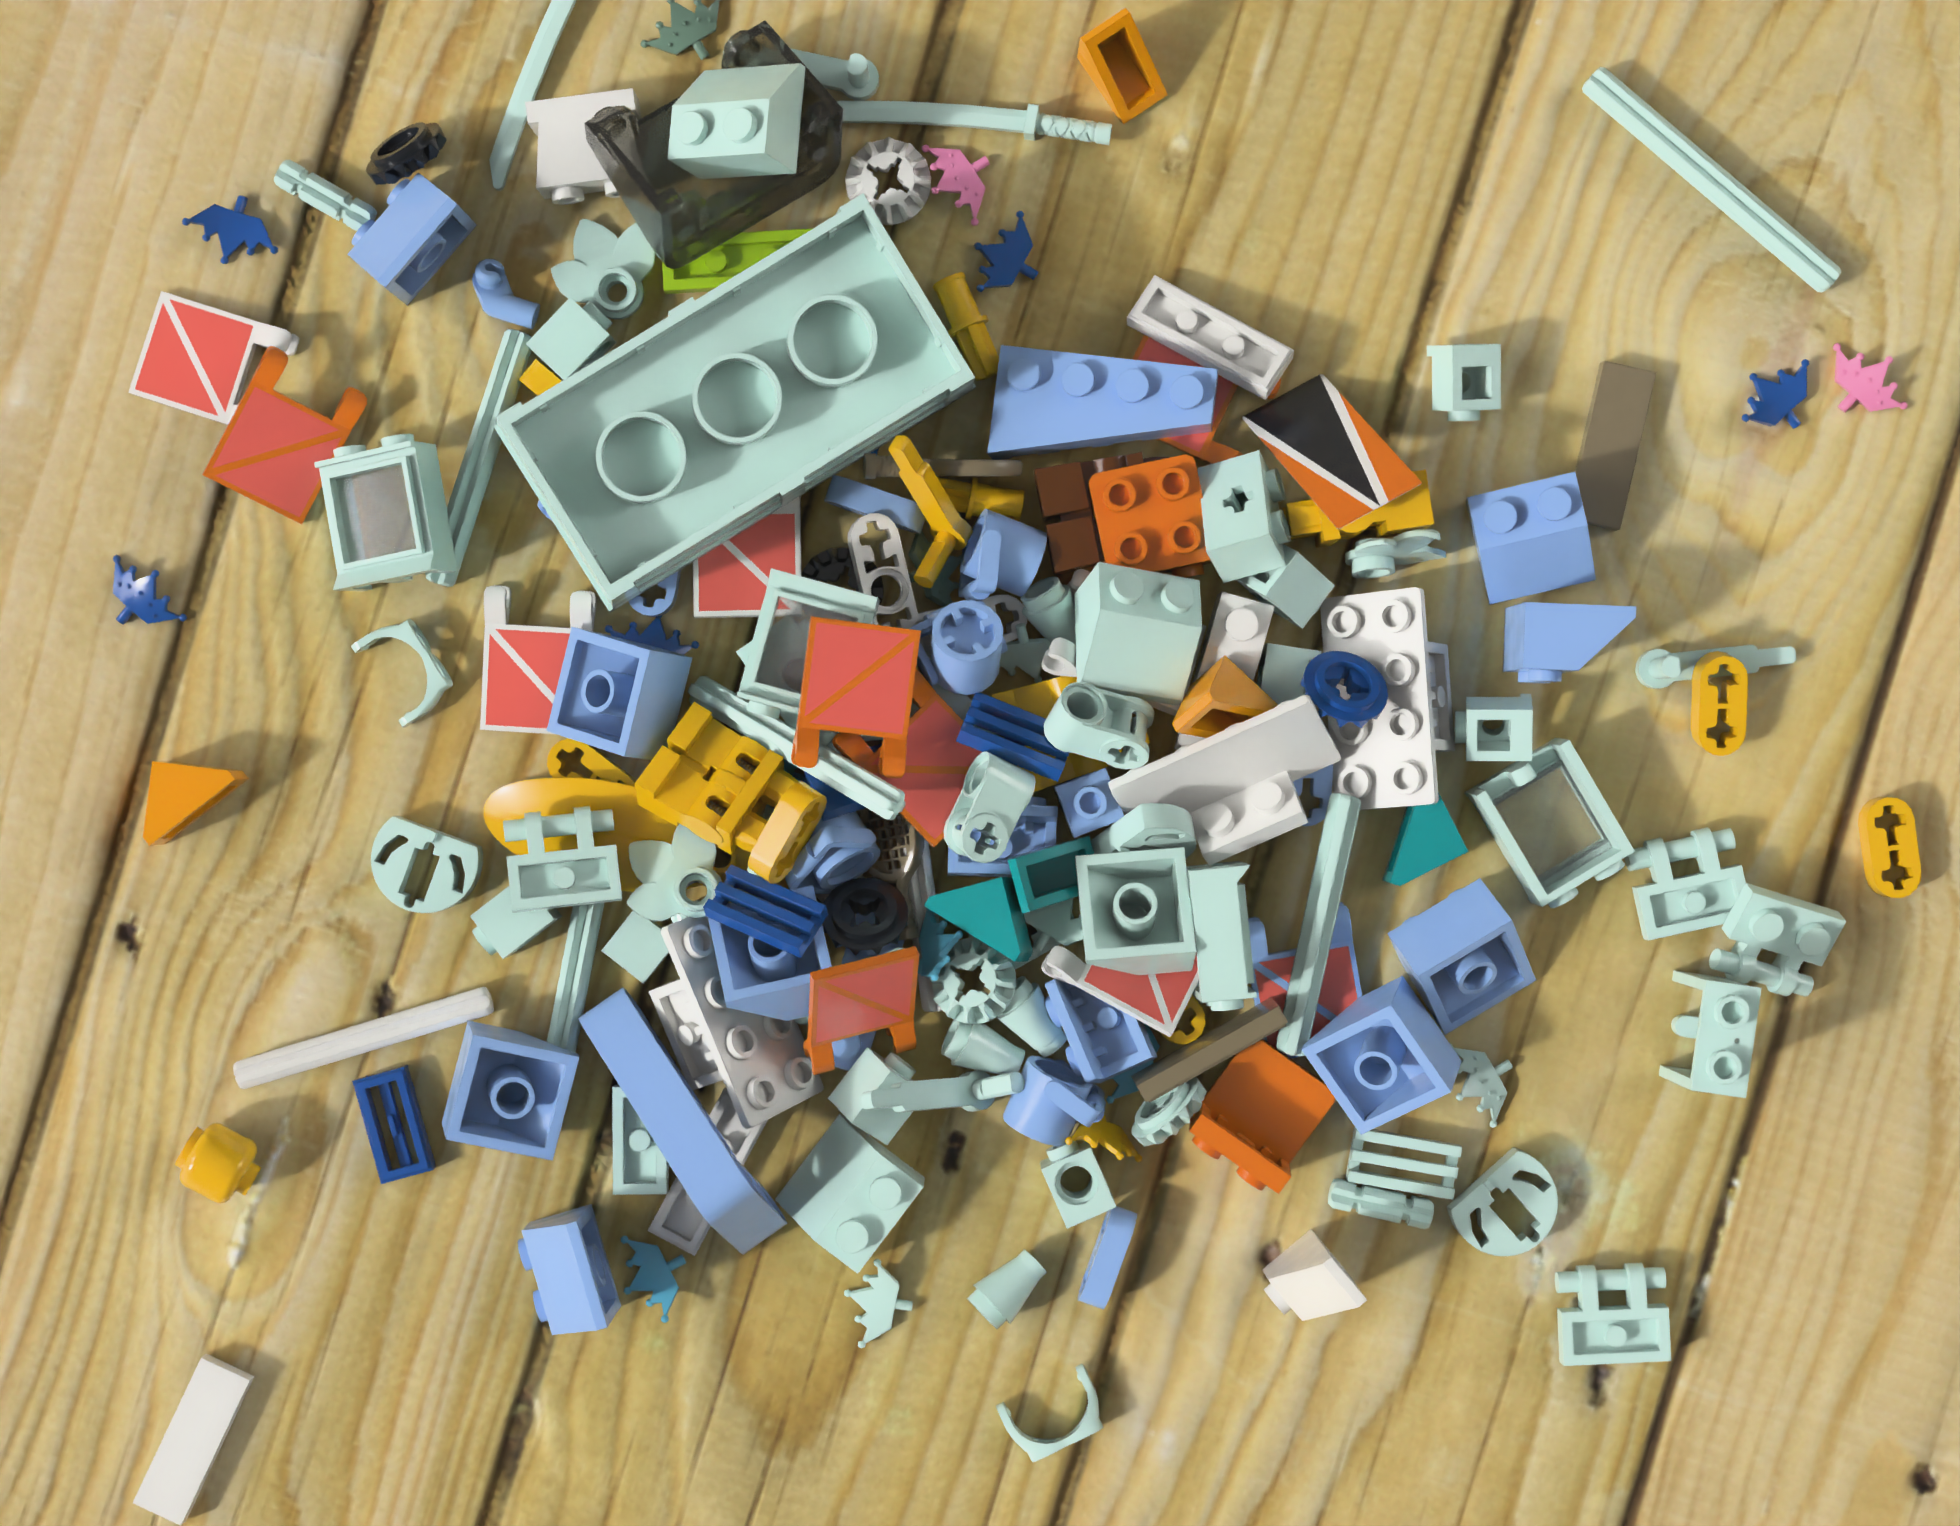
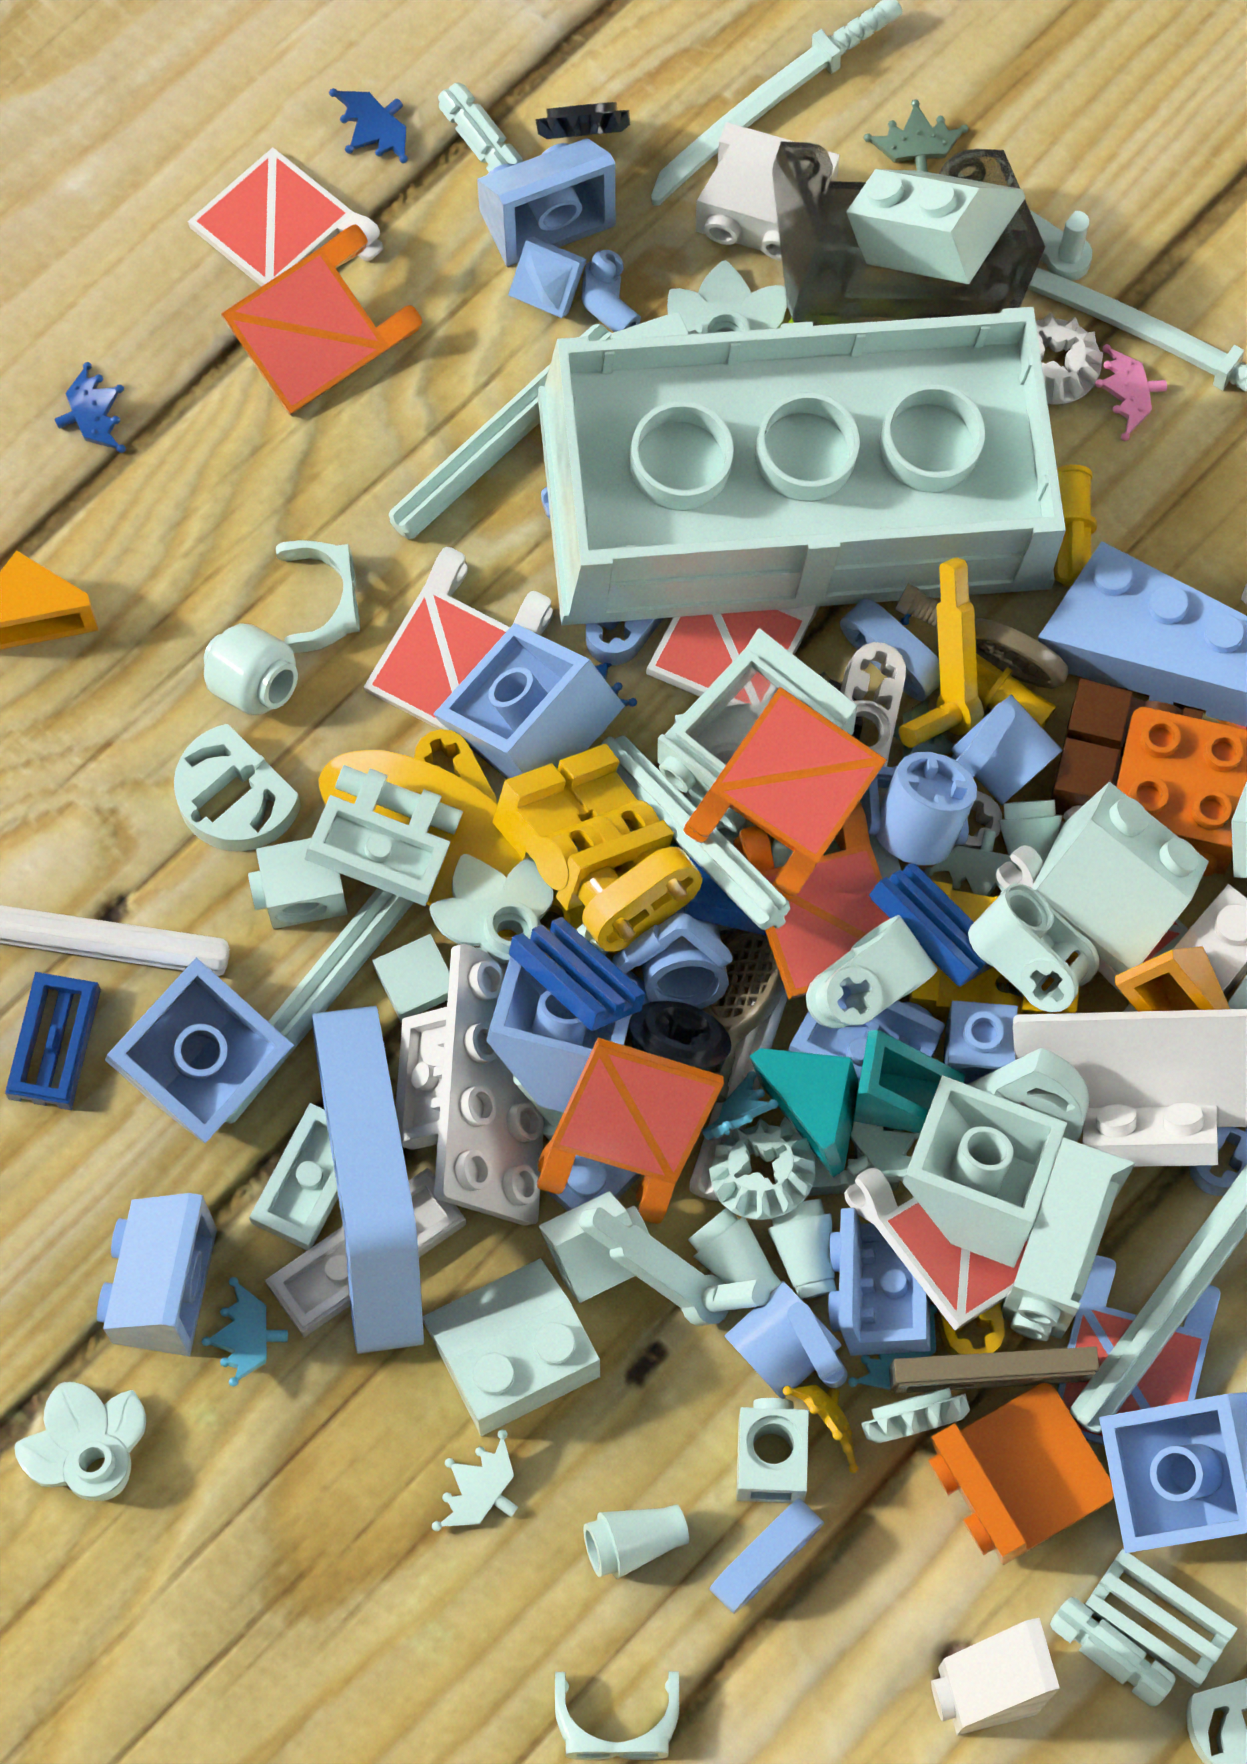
camera: 25 degrees right, 20 degrees down
(386, 513) = (384, 429): light aqua window -> none
(386, 763) = (250, 669): none -> light aqua head
(446, 307) = (547, 277): none -> light blue tile
(572, 1402) = (77, 1435): none -> light aqua plate
(1008, 257) = (1144, 483): blue piece -> none

